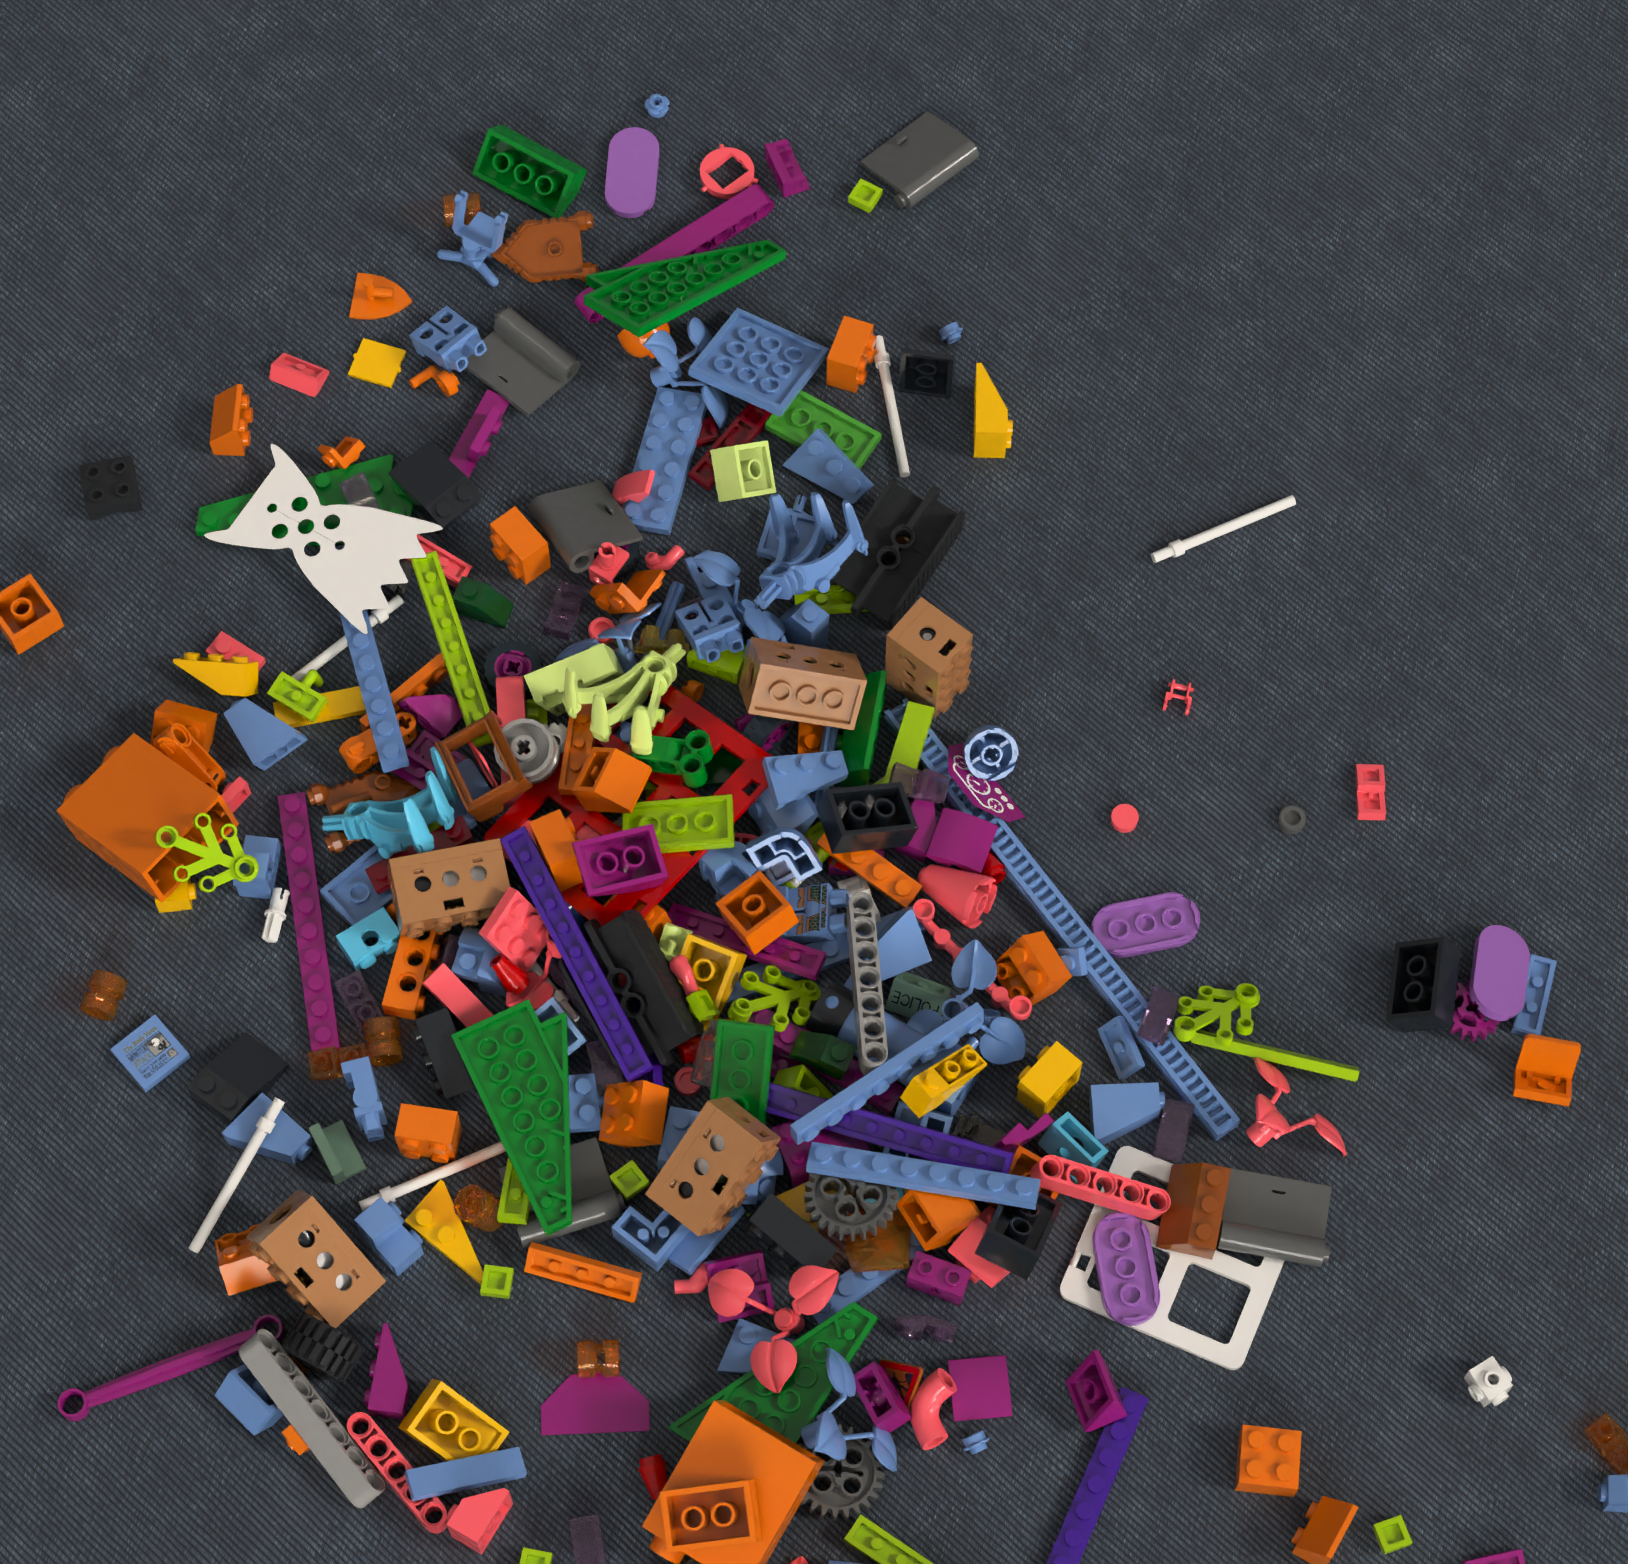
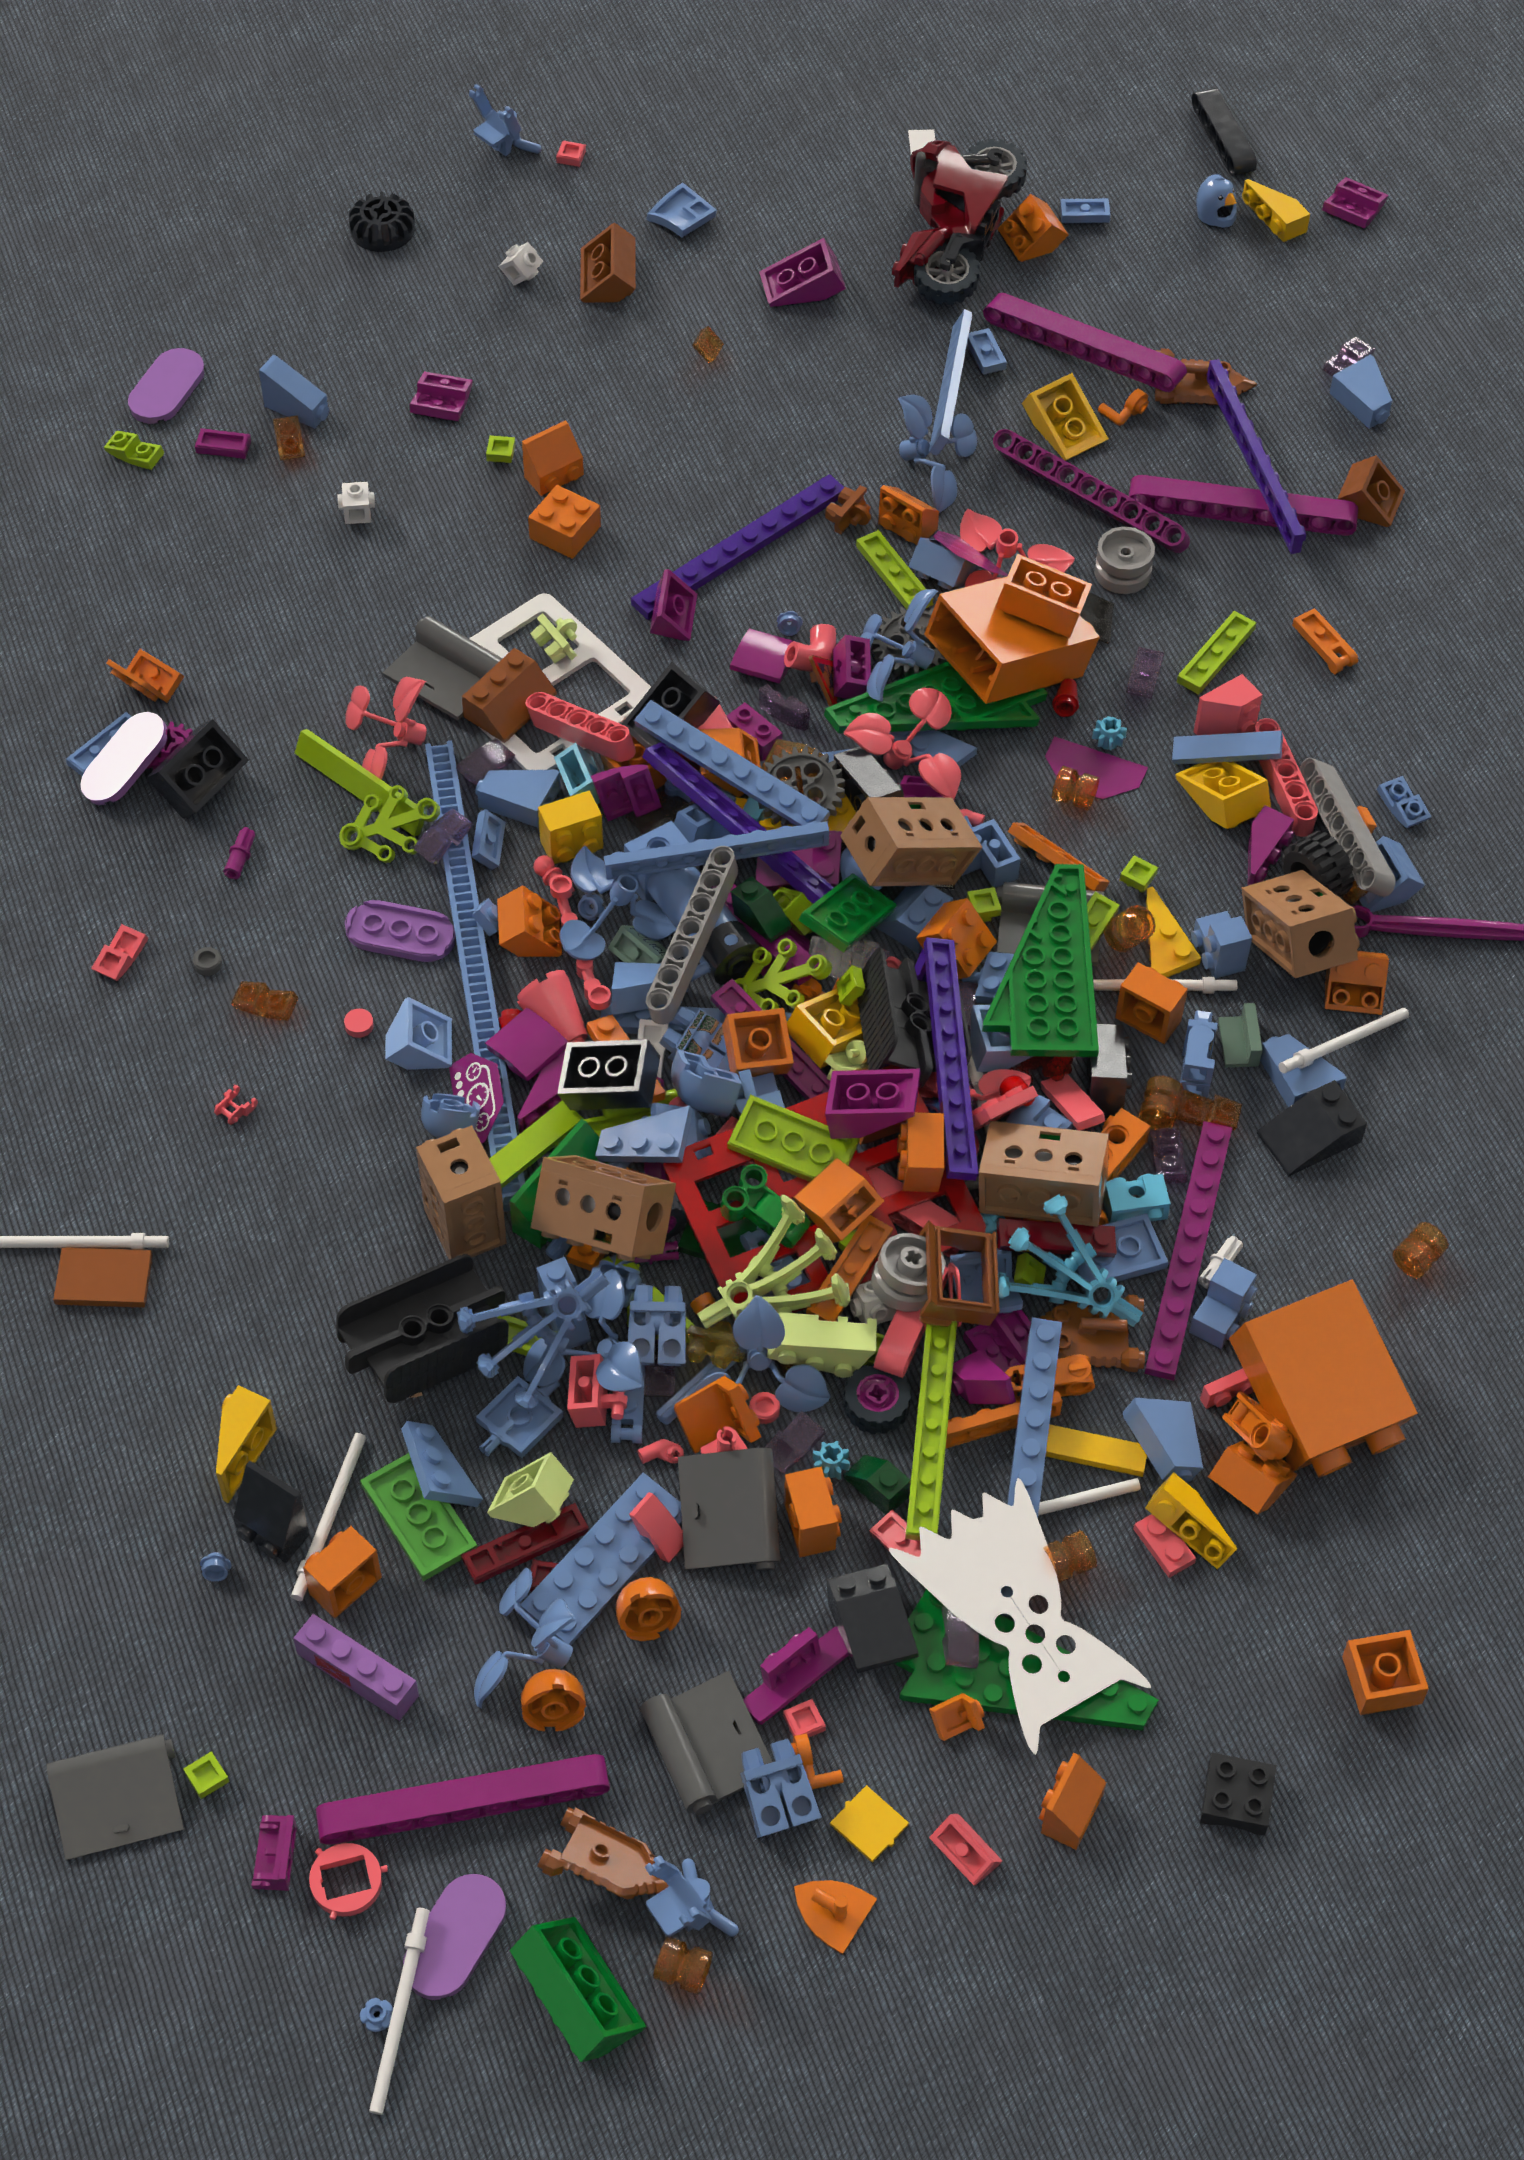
camera: 155 degrees left, 10 degrees down
(150, 1053) = (1389, 1191): medium blue tile -> none
(211, 855) = (1244, 1264): lime plant -> none
(268, 1502) = (1402, 803): none -> medium blue slope
(299, 695) = (1115, 1455): lime plate -> none
(302, 607) = (1071, 1555): none -> clear orange wheel
(457, 411) = (804, 1719): none -> coral tile
(523, 606) = (831, 1459): none -> medium azure gear
(597, 1454) = (1109, 733): none -> medium azure gear
(613, 431) = (647, 1608): none -> orange cylinder
(652, 146) = (414, 1944): none -> white bar
(661, 290) = (503, 1722): green wing -> none
(682, 970) = (856, 1018): coral arm -> none
(751, 568) = (587, 1398): none -> coral brick
(758, 362) = (445, 1609): medium blue plate -> none
(801, 302) = (356, 1667): none -> medium lavender brick
(921, 785) = (536, 1106): slope -> none
(942, 1080) = (679, 824): yellow slope -> none
(1039, 1035) = (545, 867): none -> coral pin
(1059, 818) = (419, 1037): none -> light blue slope
(1126, 1269) = (595, 678): medium lavender tile -> none
(1184, 510) = (103, 1277): none -> dark orange tile
(1188, 1302) = (547, 631): none -> yellowish green hips
(1217, 803) = (261, 1001): none -> clear orange slope
(1335, 935) = (239, 853): none -> magenta axle

